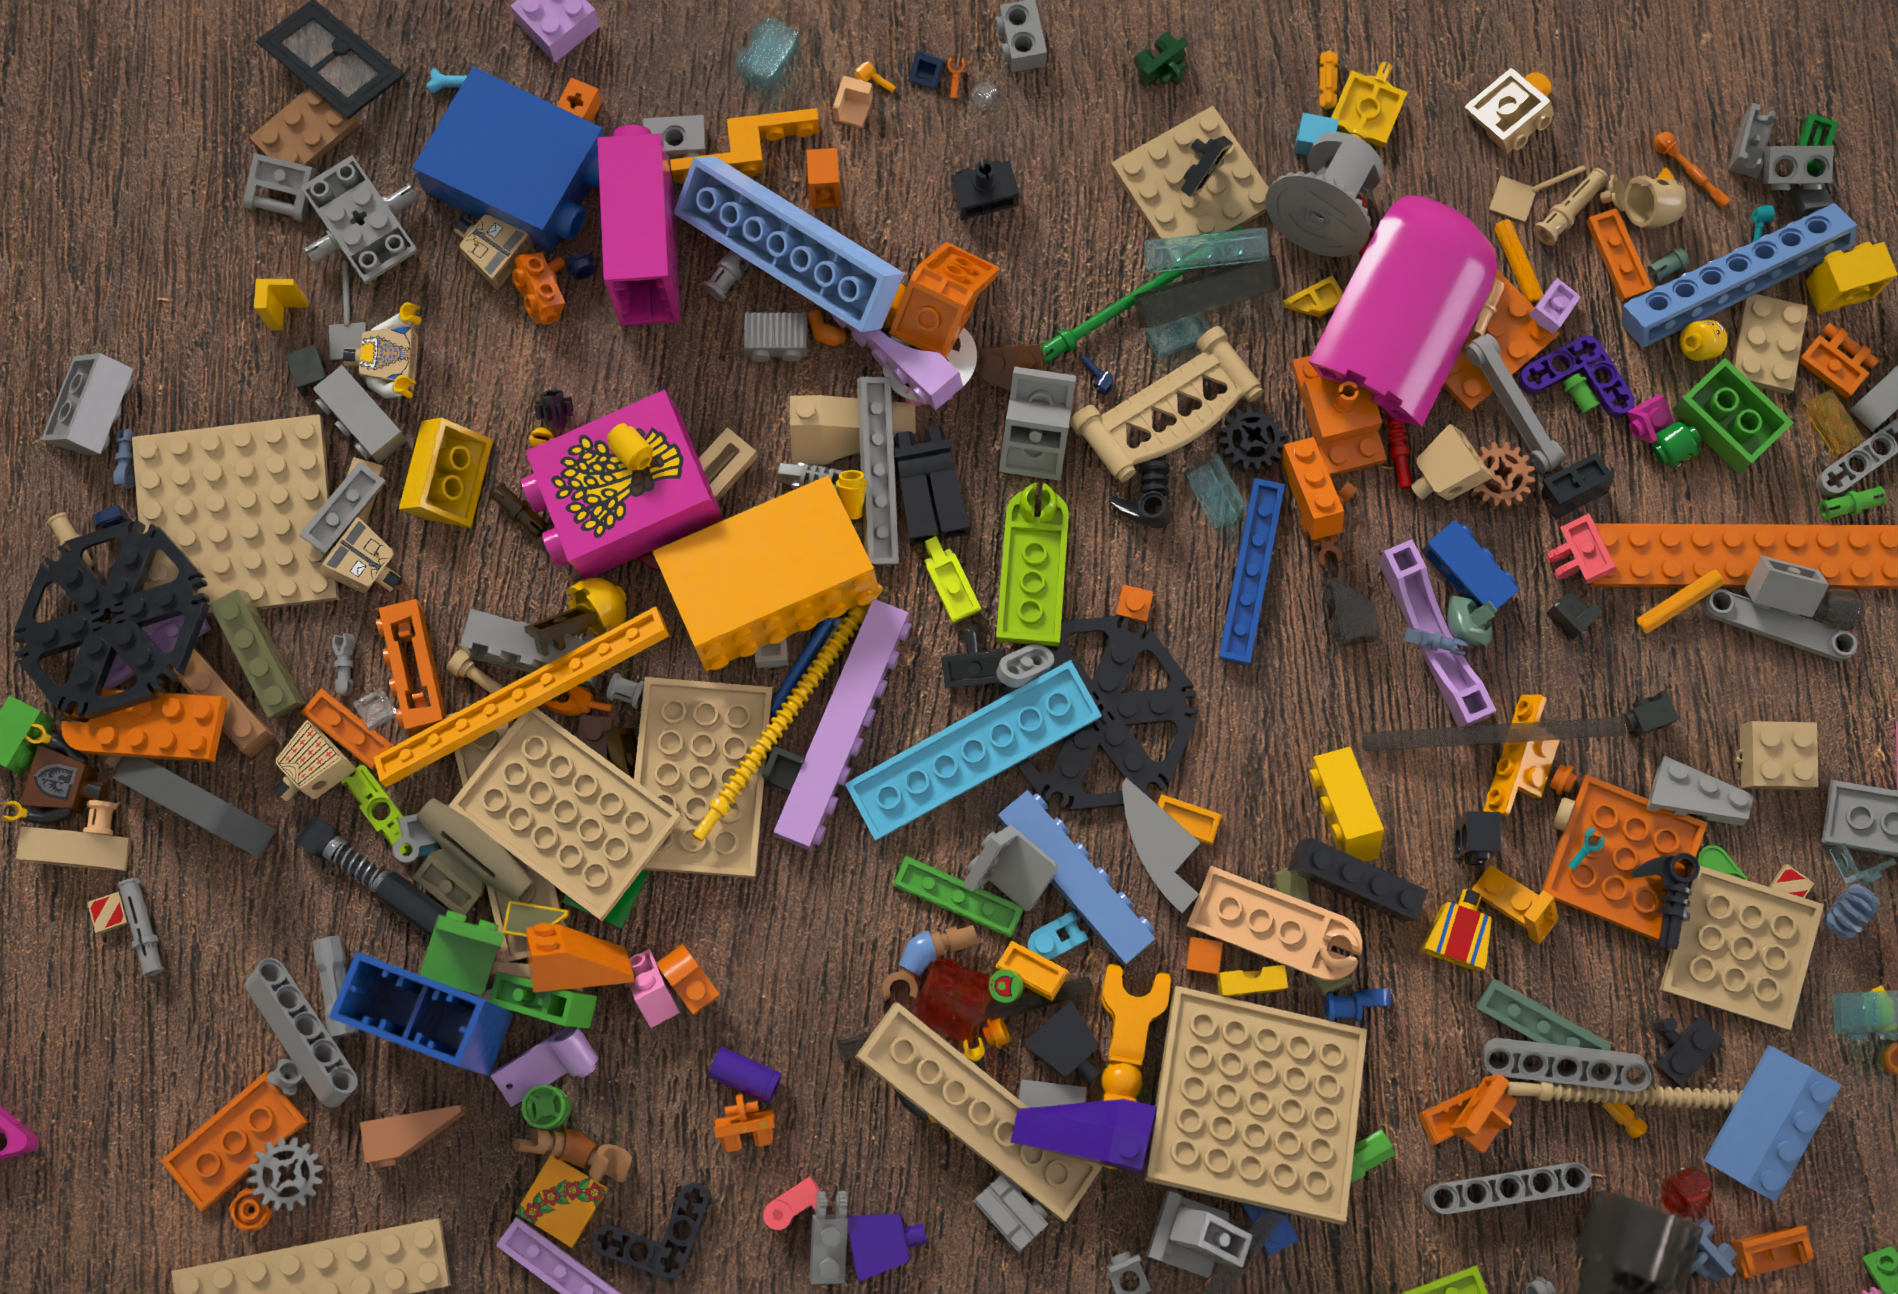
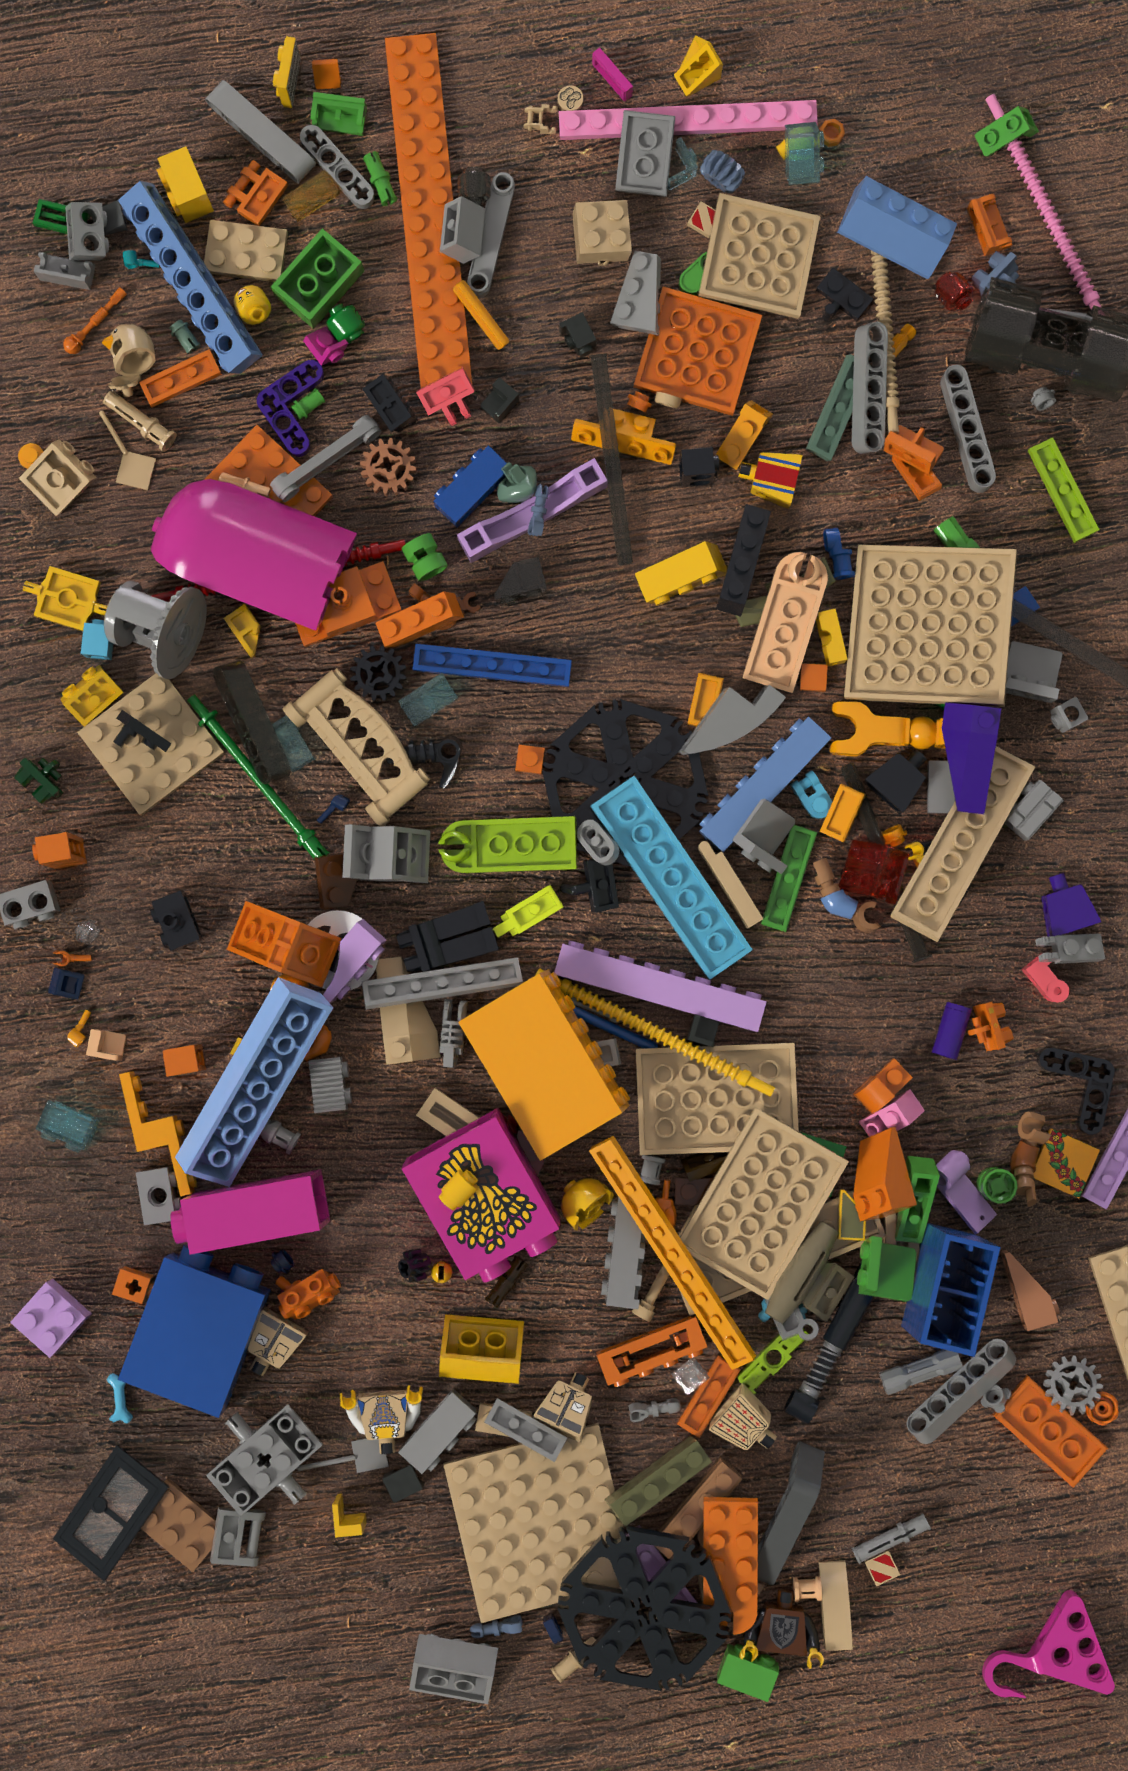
camera: 95 degrees left, 10 degrees up
(571, 622) = (610, 1228): dark brown plate -> none
(852, 492) = (463, 1002): yellow cone -> none
(956, 821) = (730, 885): none -> tan hinge
(1006, 985) = (859, 831): bright green tile -> none
(1077, 65) = (59, 850): none -> orange brick
(1206, 250) = (217, 725): clear light blue tile -> none
(1211, 1237) = (1037, 652): light grey brick -> none
(1253, 123) = (90, 695): none -> yellow bracket
(1328, 80) = (42, 634): light orange axle -> none
(1390, 504) = (429, 565): none -> bright green wheel
(1449, 466) = (387, 508): tan torso -> none
(1518, 261) = (194, 462): light orange axle -> none
(1554, 306) = (234, 429): lavender plate -> none
(1586, 848) = (694, 378): teal hand -> none
(1676, 892) = (721, 308): black piece -> none

